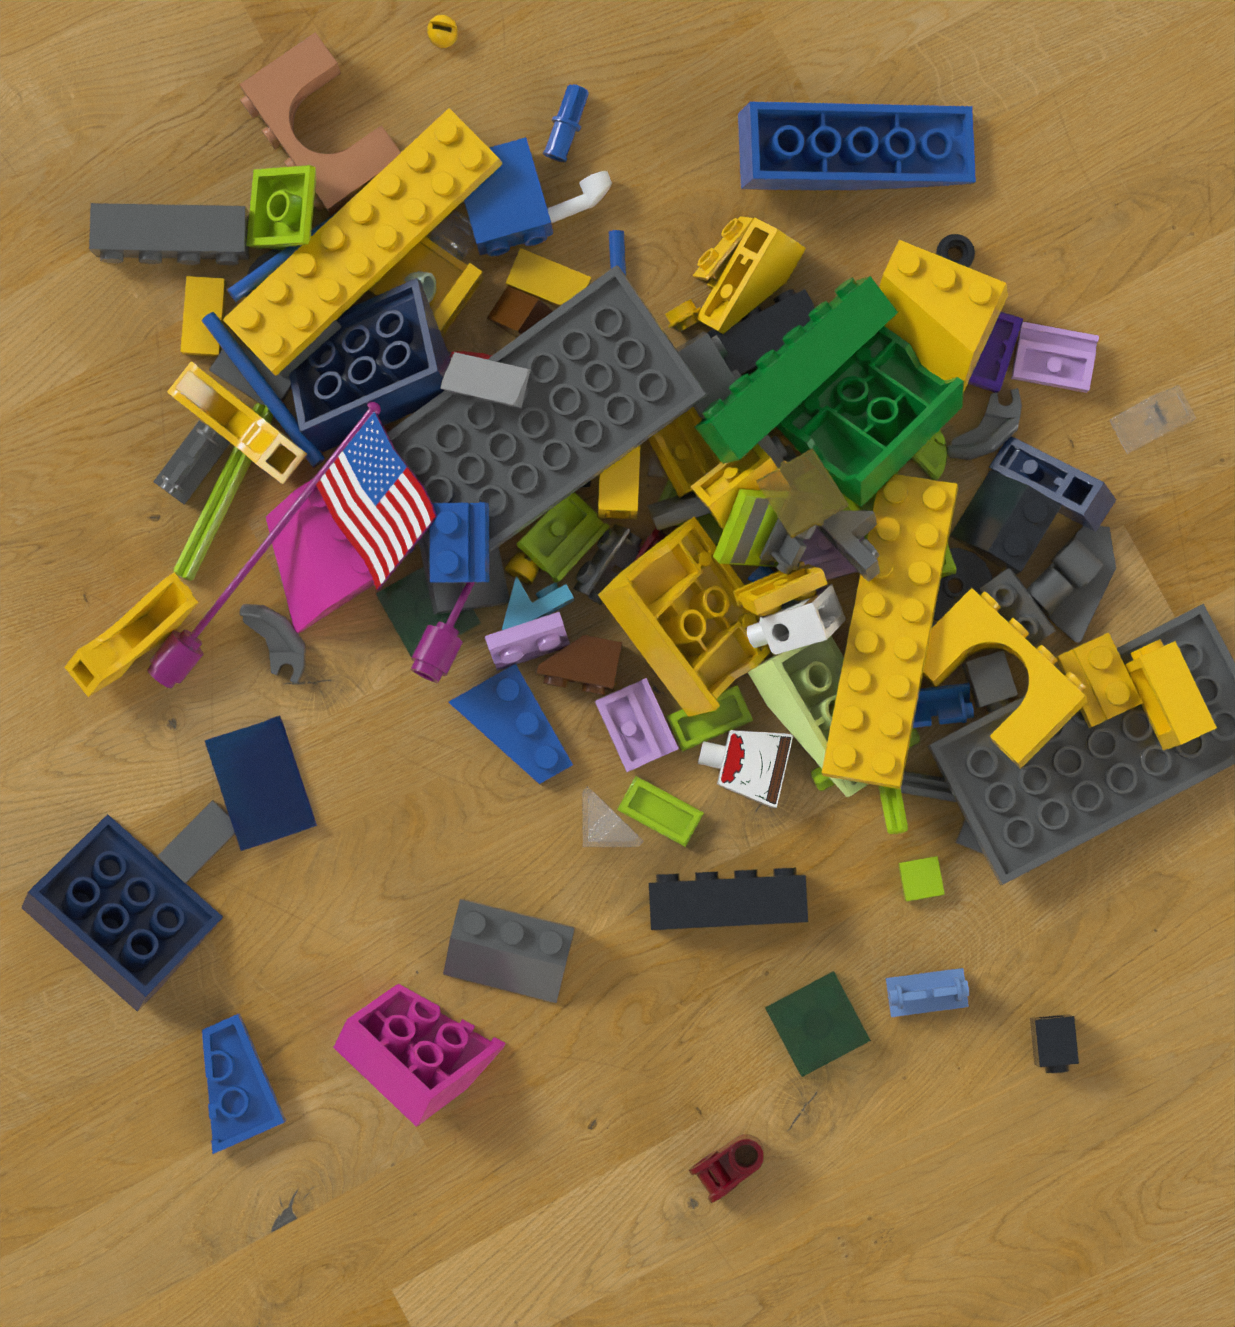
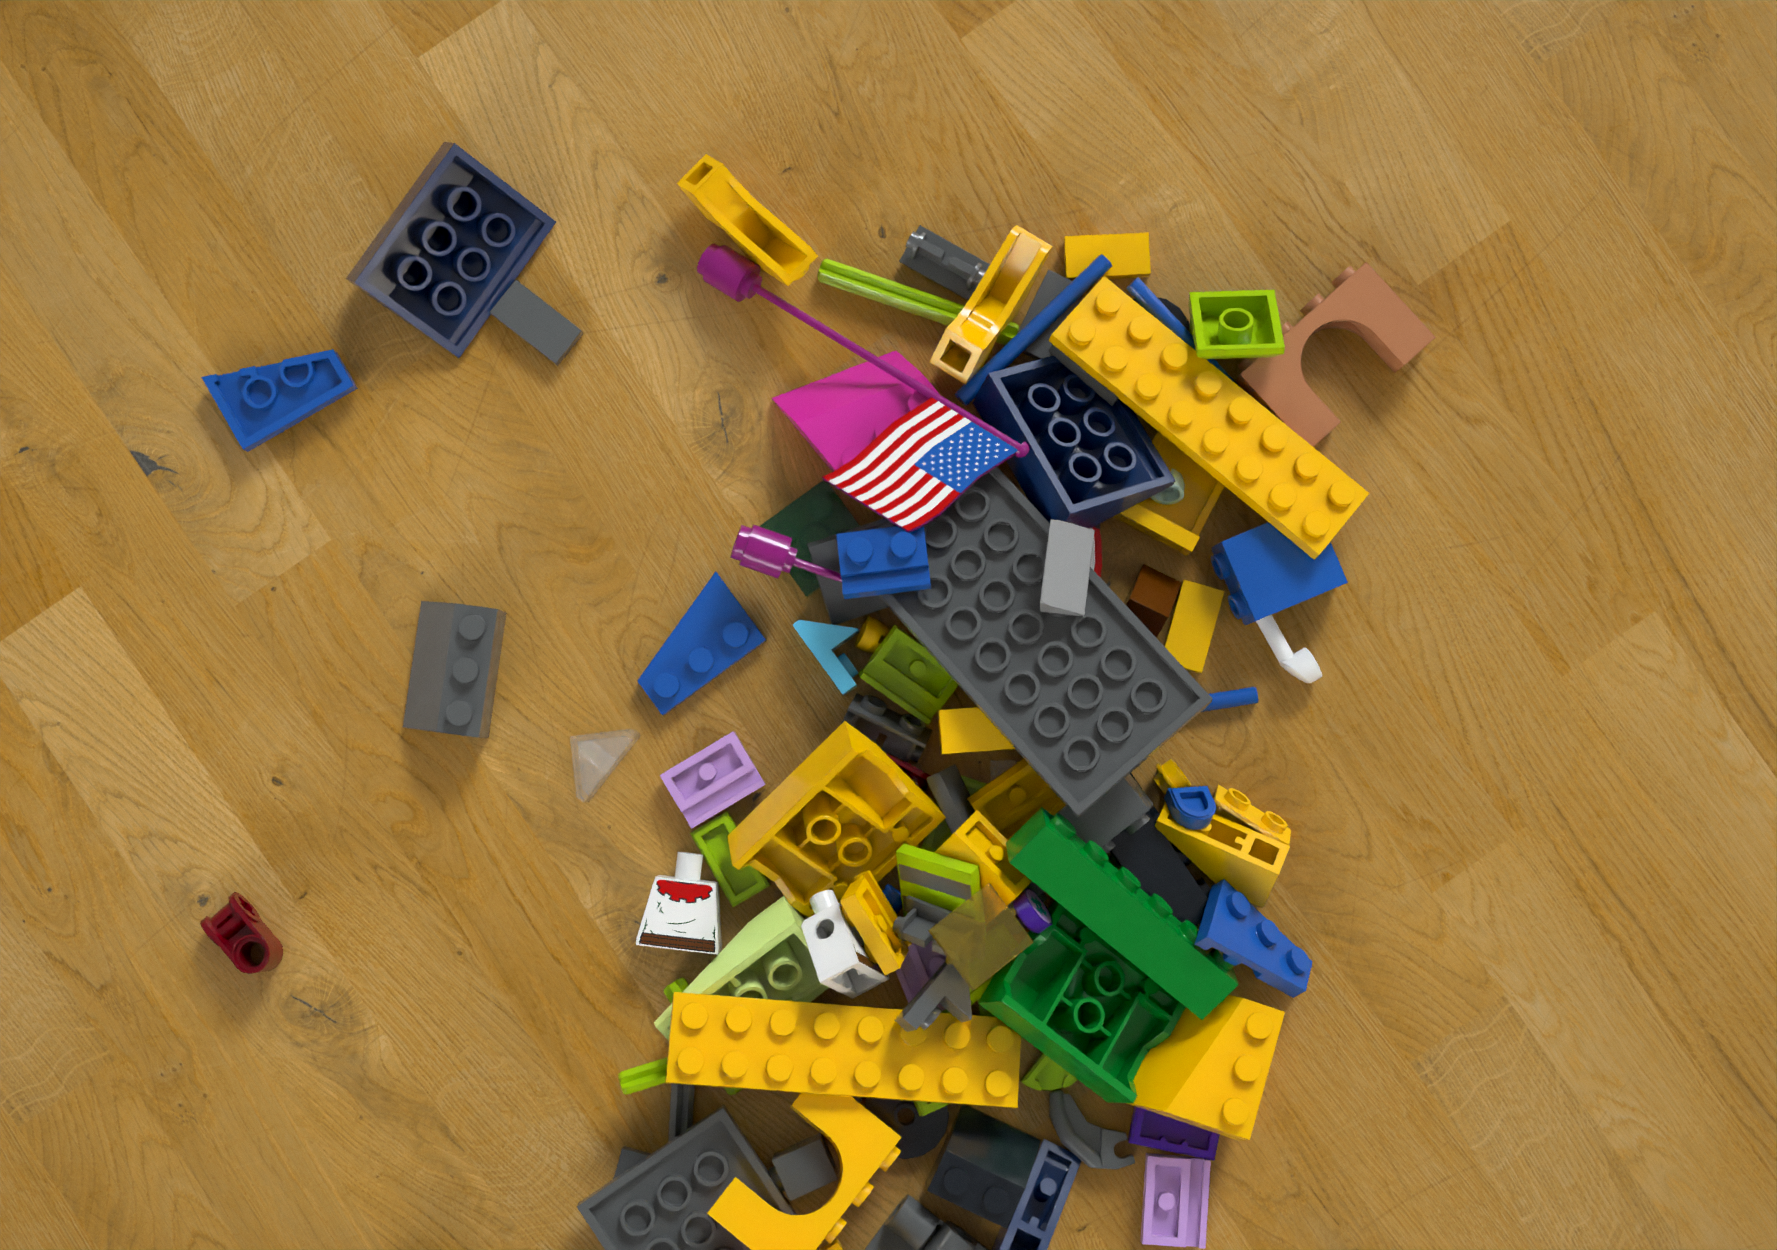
camera: 80 degrees right, 0 degrees up
(169, 232) = (1194, 207): dark grey brick -> none
(260, 783) = (606, 380): clear blue piece -> none
(281, 638) = (766, 383): dark grey piece -> none
(414, 1052) = (331, 580): dark pink wedge -> none
(440, 37) = (1447, 477): yellow hinge -> none
(454, 235) = (1229, 517): clear tile -> none
(527, 641) = (790, 649): lavender plate -> none
(566, 123) = (1370, 625): blue axle -> none
(585, 662) = (775, 716): reddish brown slope -> none
(660, 811) = (622, 816): lime tile -> none
(709, 299) = (1191, 806): none -> blue tile
(728, 901) = (530, 902): black brick -> none
(786, 447) = (1032, 911): none -> dark purple tile
(817, 1023) = (408, 1015): clear green plate -> none
(833, 259) = (1252, 939): none -> blue wing
(854, 146) = (1385, 949): blue slope -> none
(921, 878) = (579, 1113): lime tile -> none
(927, 992) = (455, 1133): medium blue hinge -> none
(947, 702) = (774, 1123): blue hinge -> none
(960, 242) = (1291, 1080): black plate -> none
(1018, 604) = (890, 1189): dark grey hinge -> none

